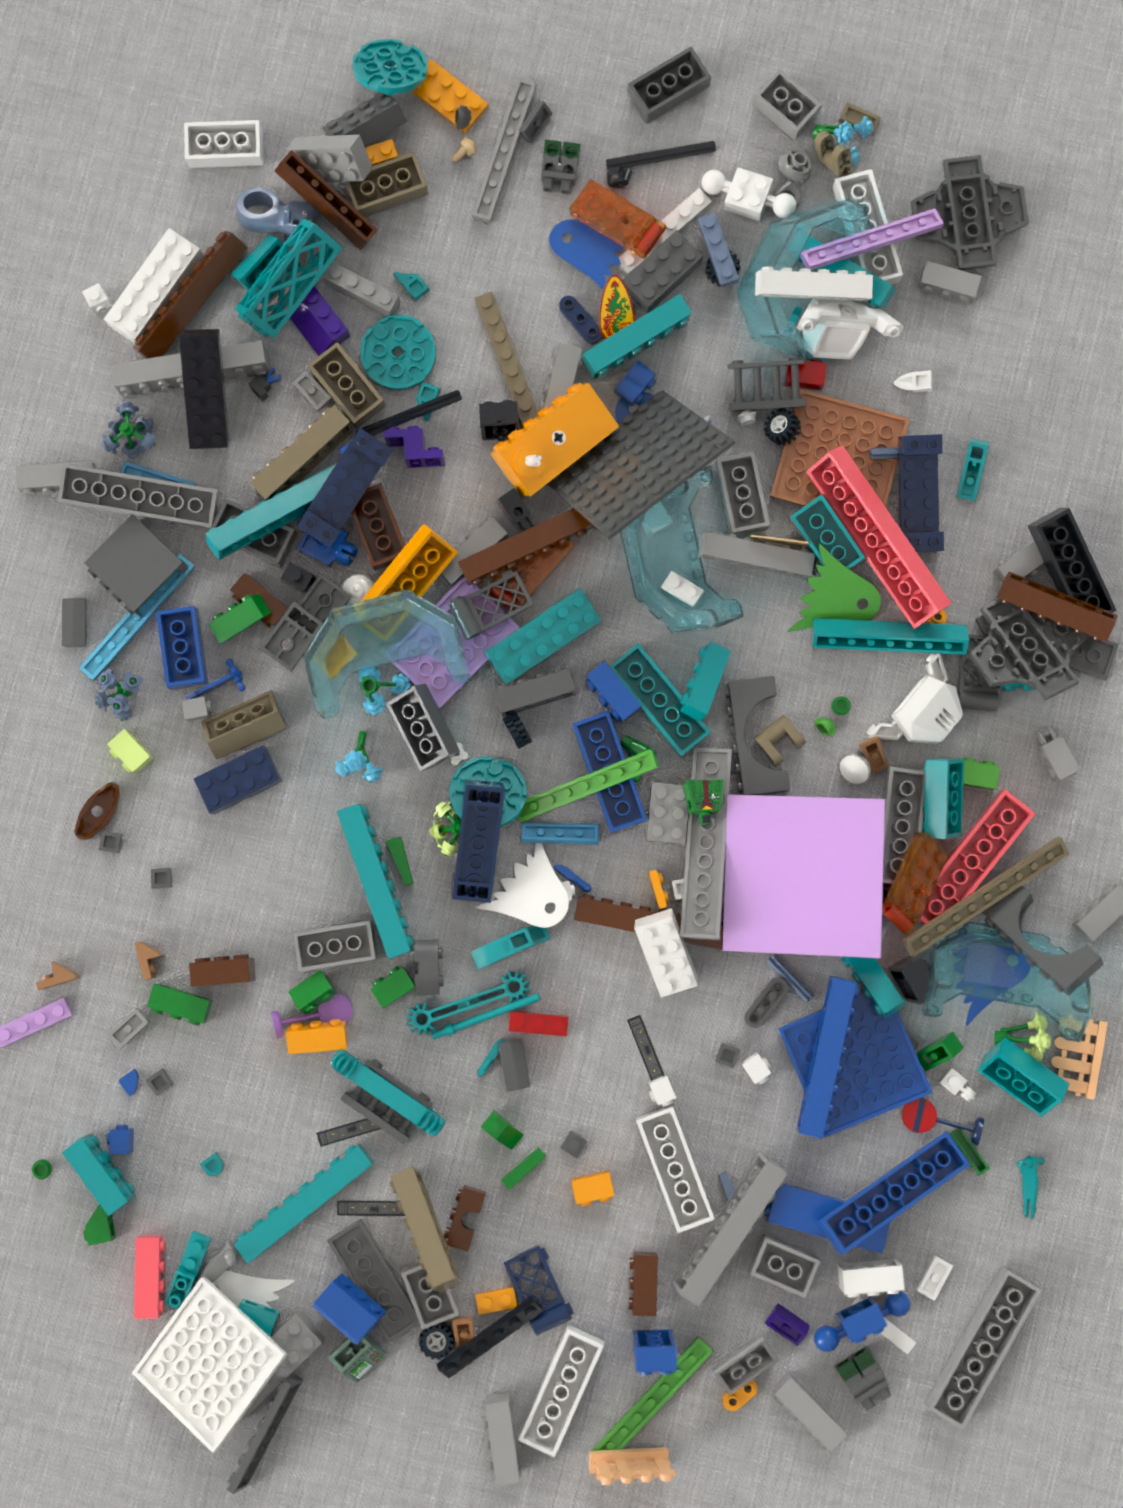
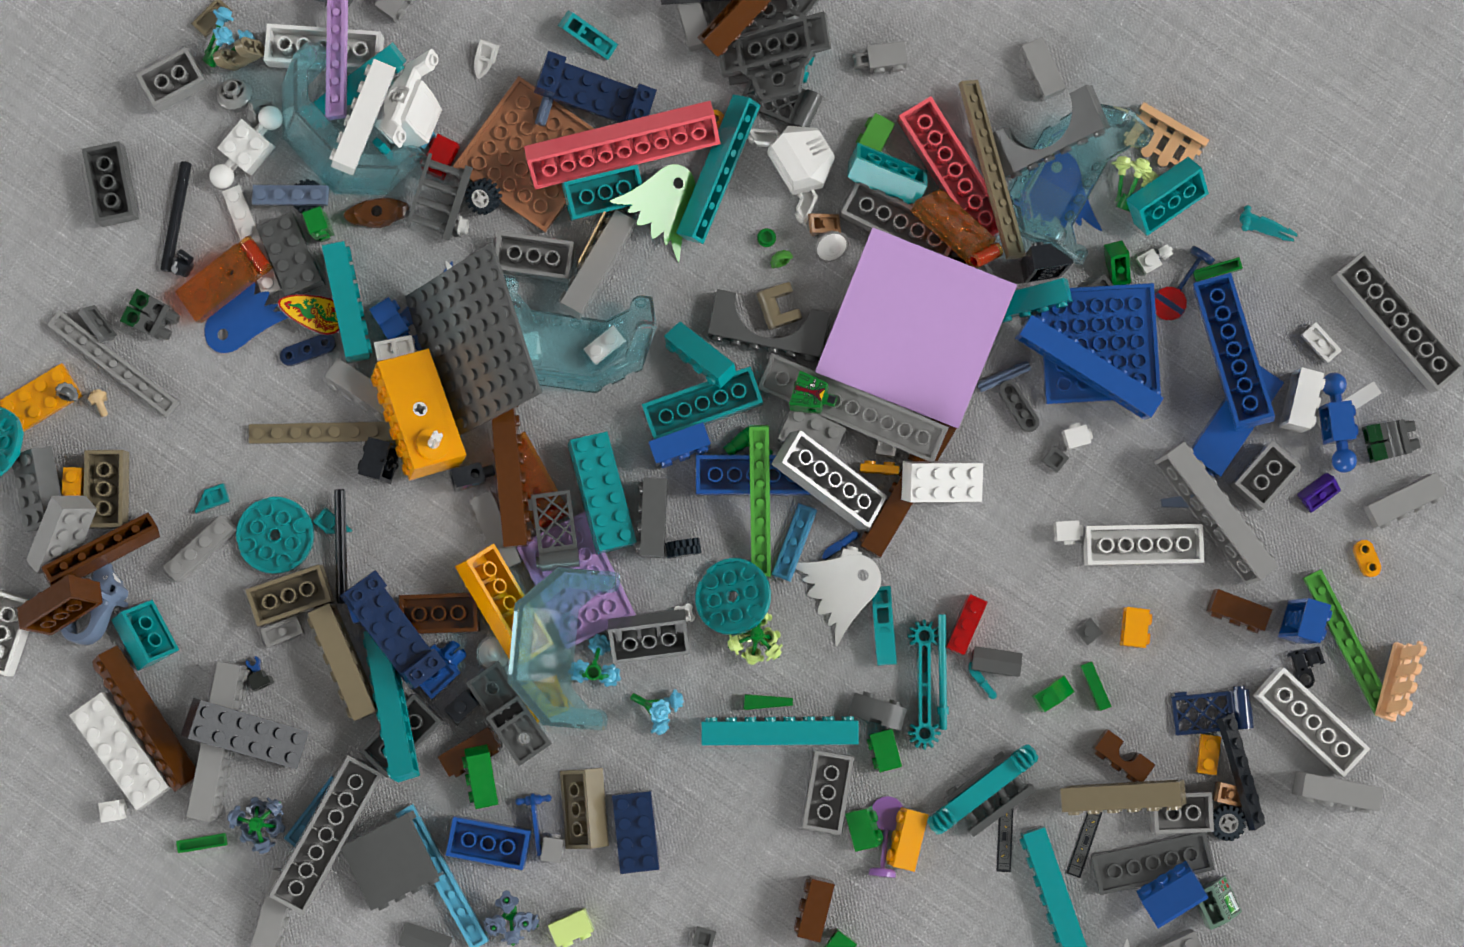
camera: 75 degrees left, 0 degrees up
(95, 389) = (201, 842): none -> green piece
(263, 180) = (59, 605): none -> reddish brown brick
(277, 270) = (129, 586): teal piece -> none
(319, 322) = (216, 602): dark purple slope -> none
(414, 447) = (375, 550): dark purple bracket -> none
(478, 840) = (776, 620): dark blue plate -> none
(610, 397) = (394, 347): none -> white hinge
(618, 1363) = (1304, 660): none -> black piece
(628, 844) = (829, 480): none -> light grey brick
(645, 1047) = (1016, 533): sticker -> none
(700, 285) = (318, 224): none -> green brick
(724, 322) = (391, 211): none -> reddish brown piece
(745, 1364) = (1342, 543): light grey slope -> none

